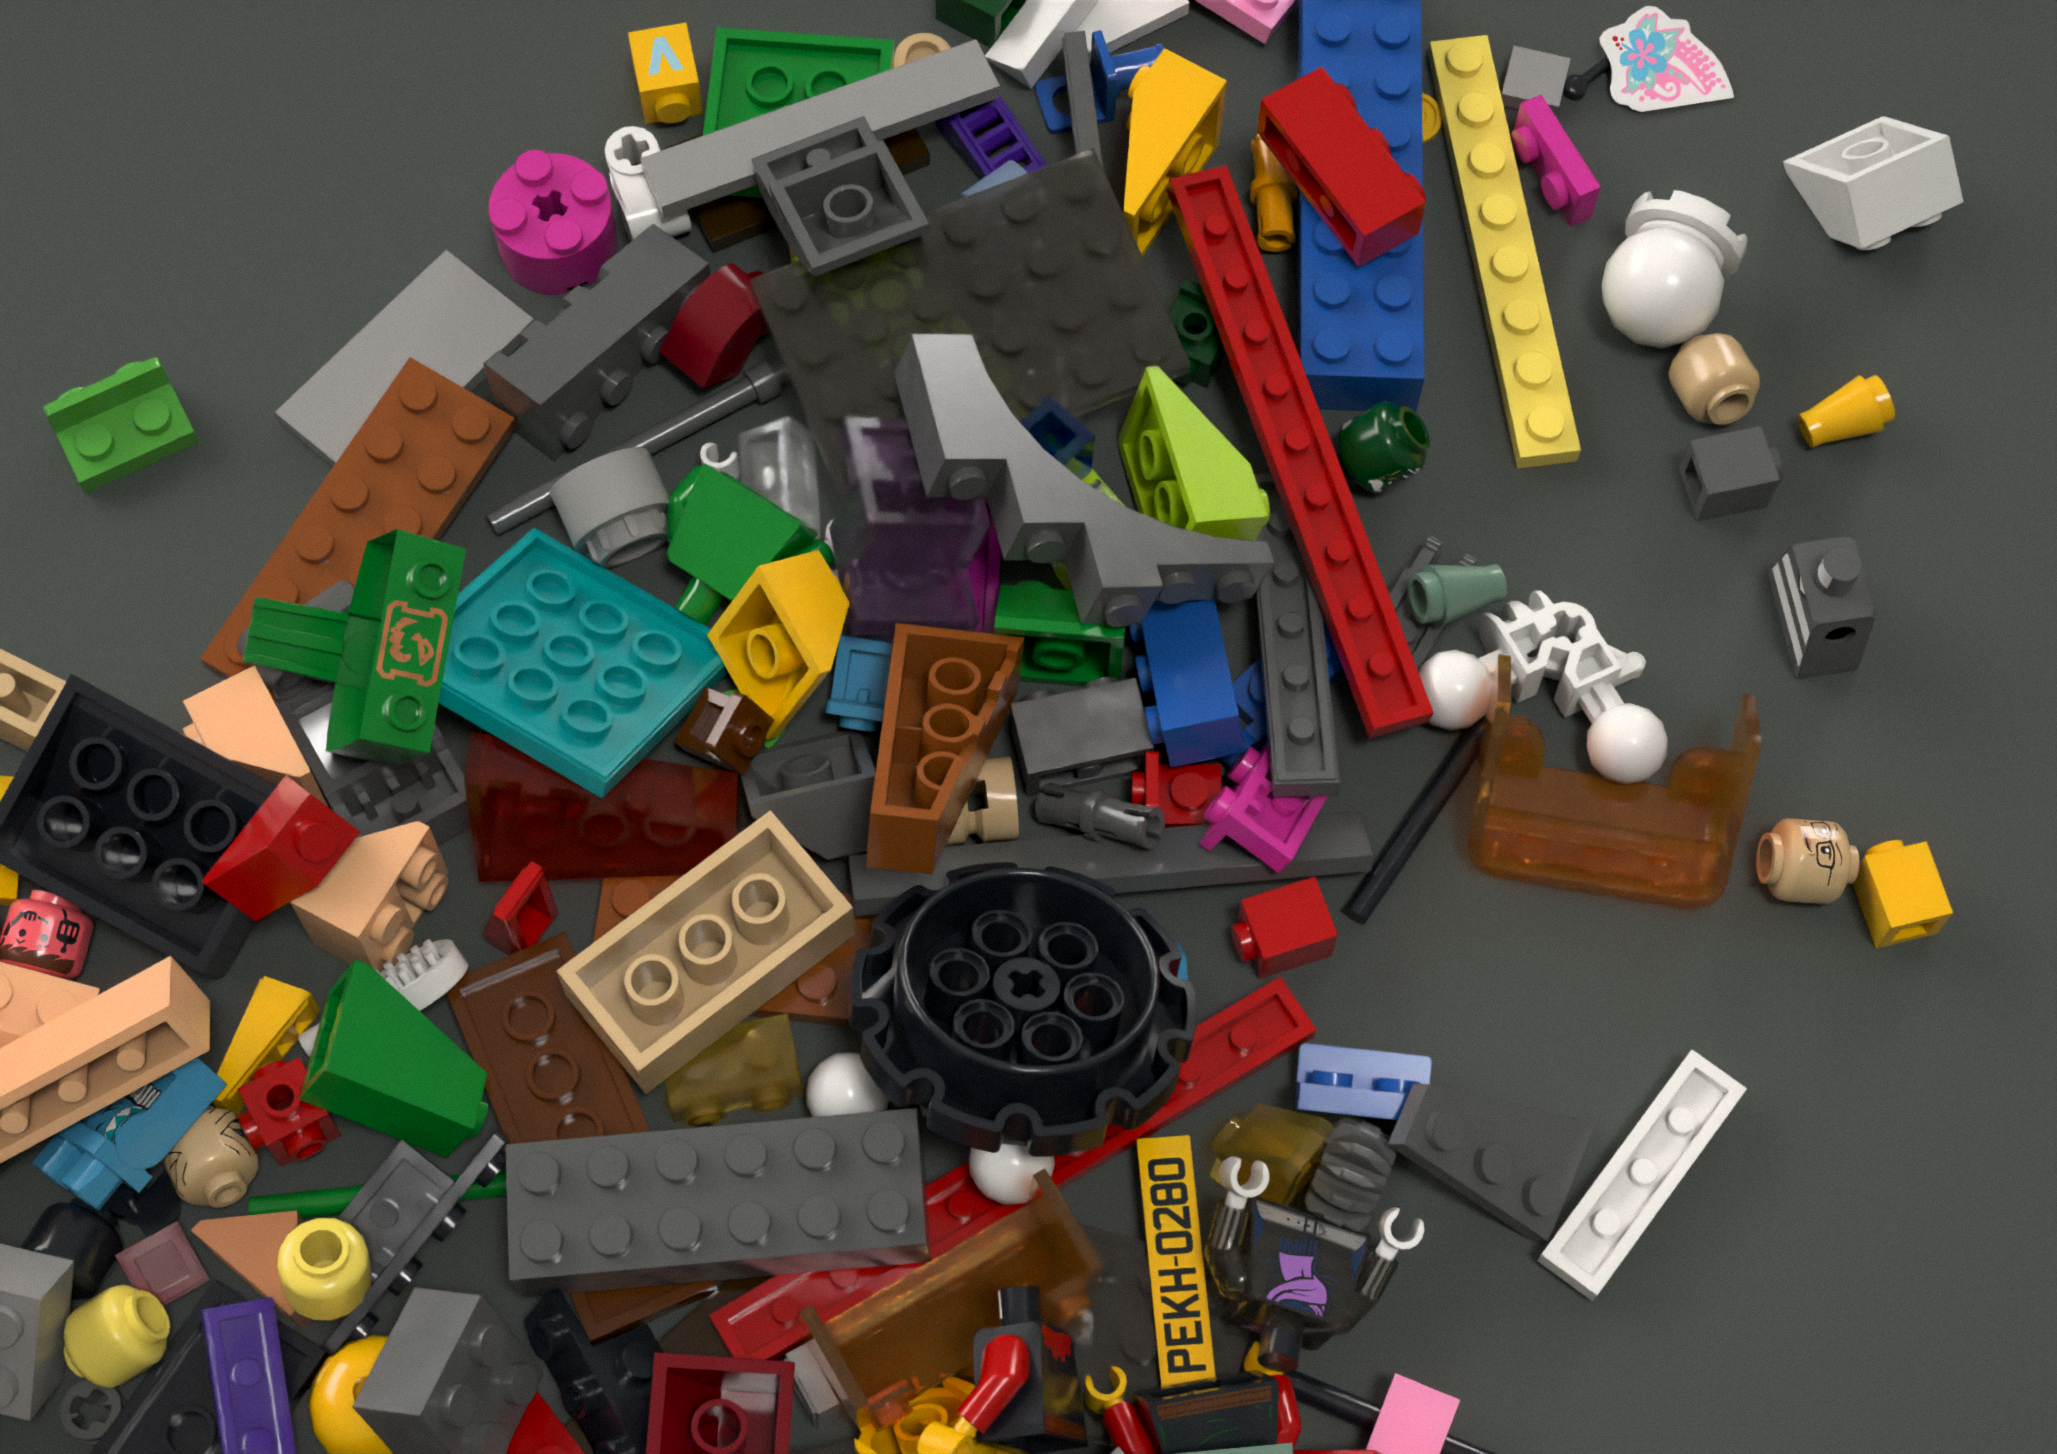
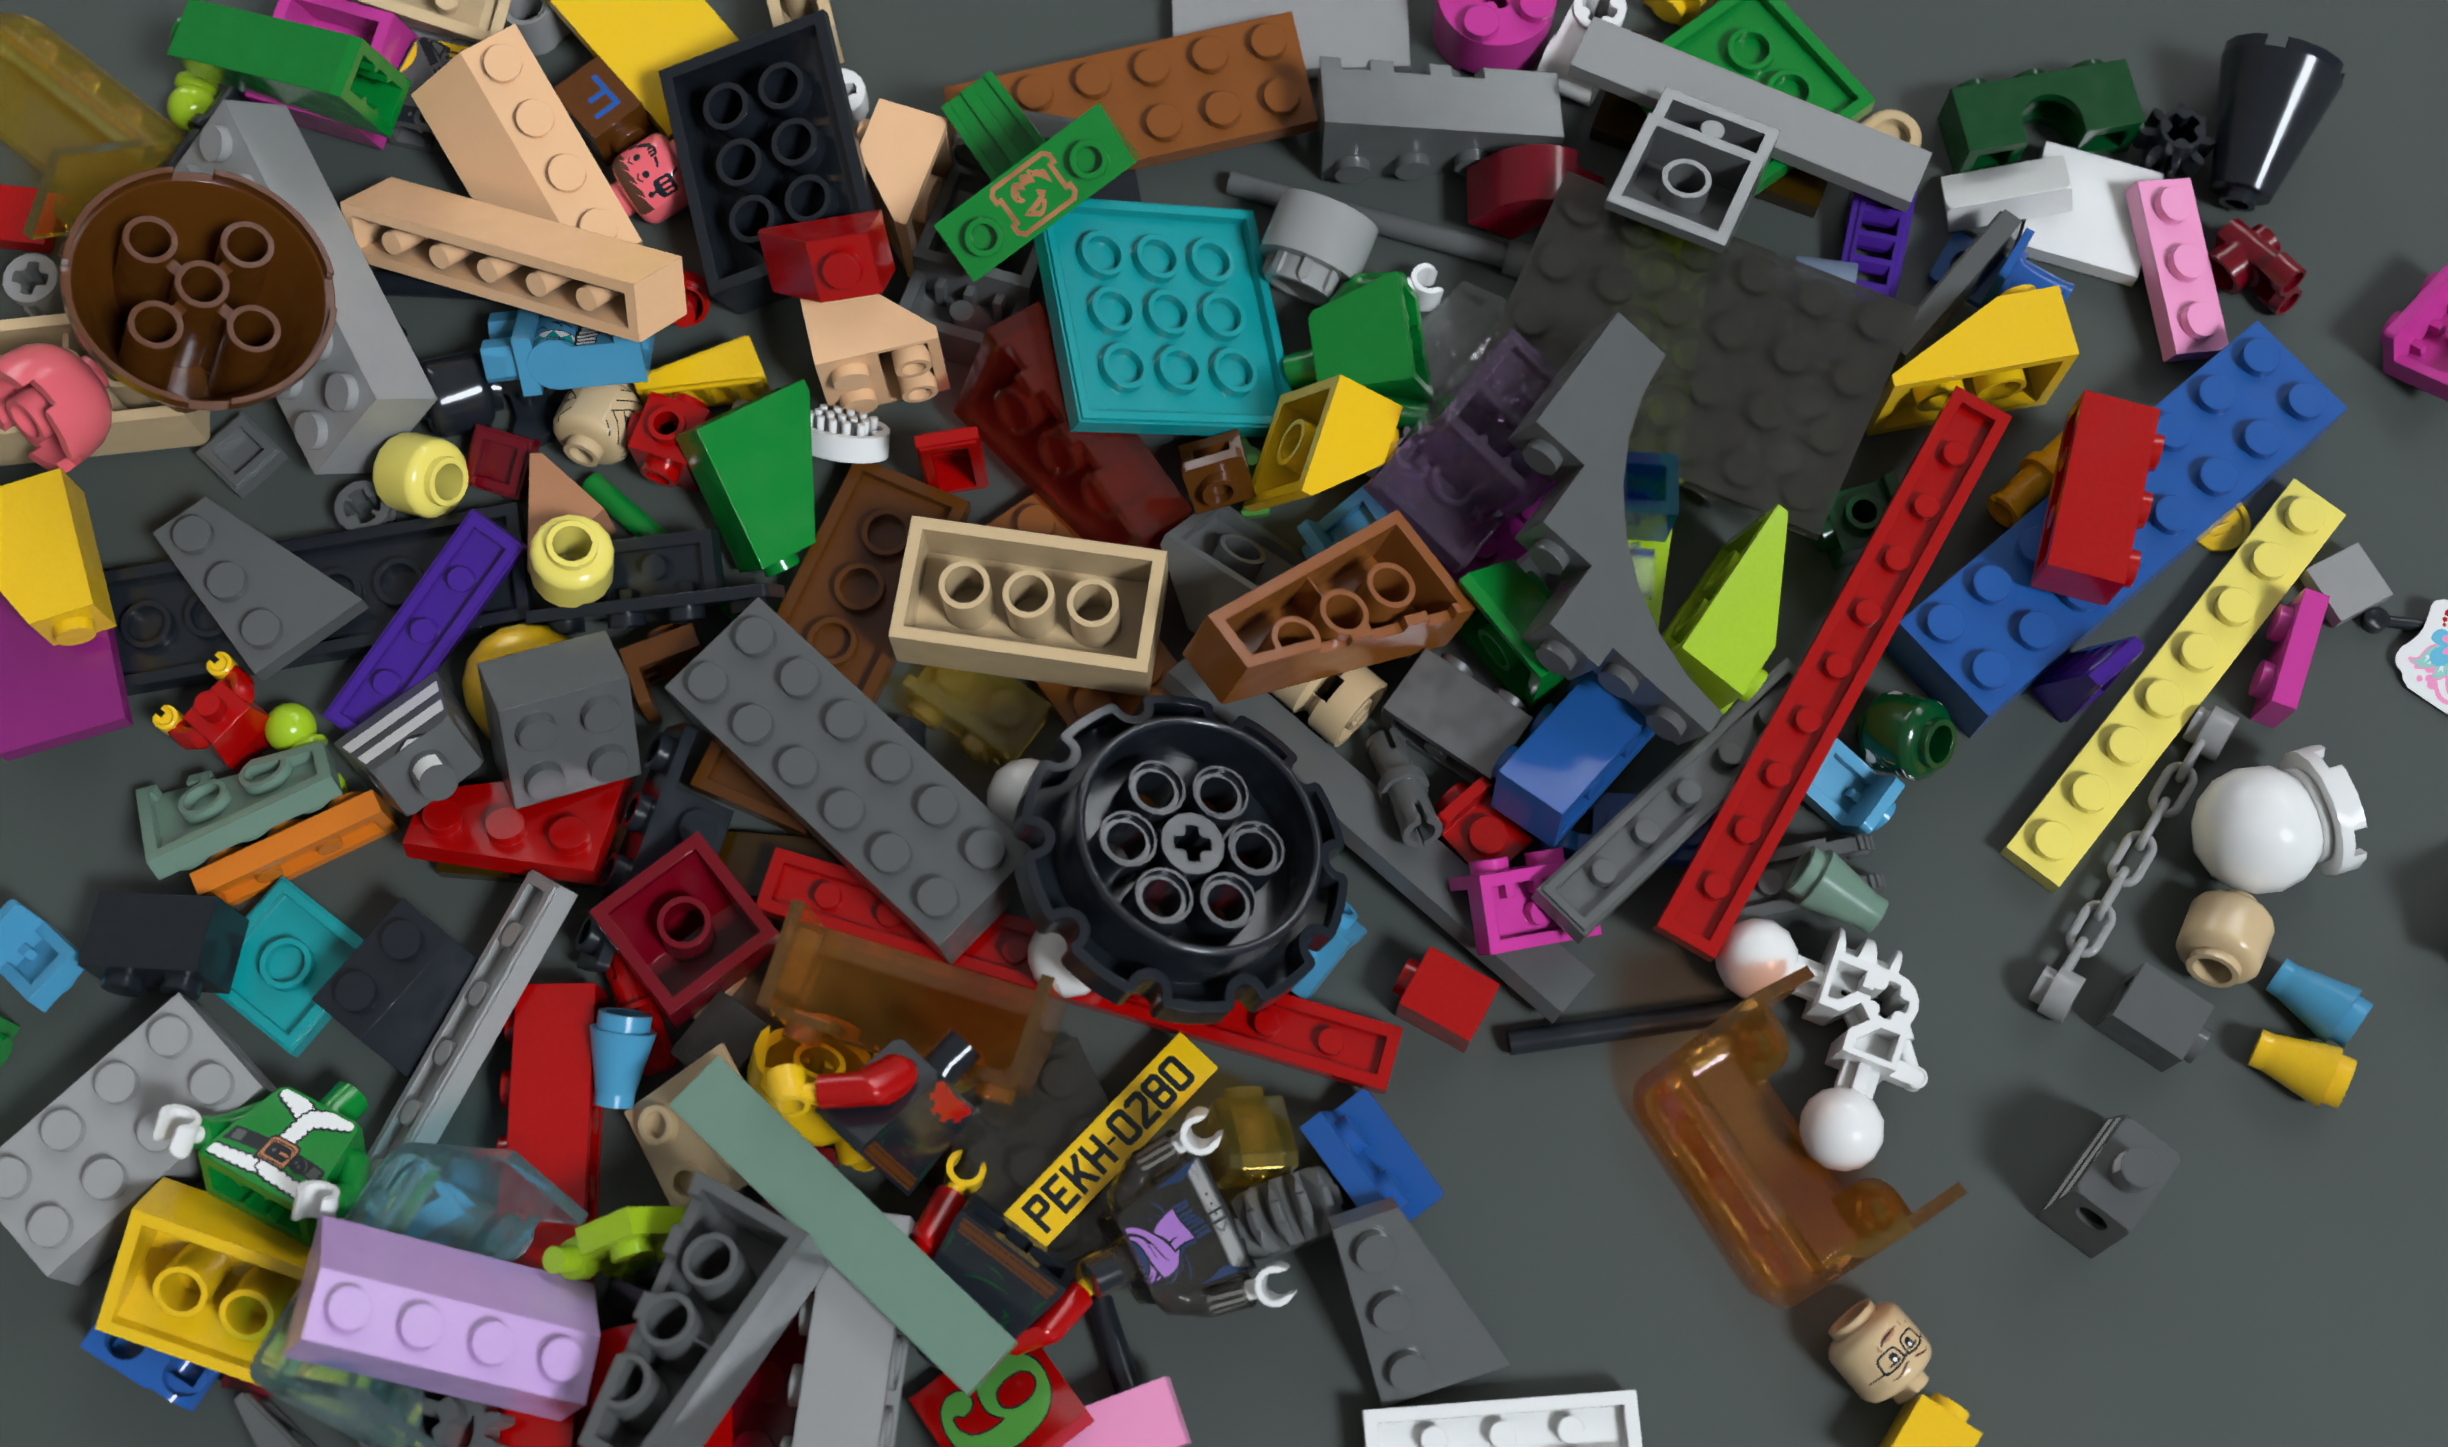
camera: 50 degrees right, 5 degrees up
(464, 1261) = (658, 660): none -> reddish brown bracket
(1396, 519) = (1852, 793): none -> dark azure bracket
(1452, 292) = (2084, 676): none -> dark purple slope
(1653, 516) = (2059, 989): none -> light grey piece
(1812, 362) = (2320, 1002): none -> dark azure cone

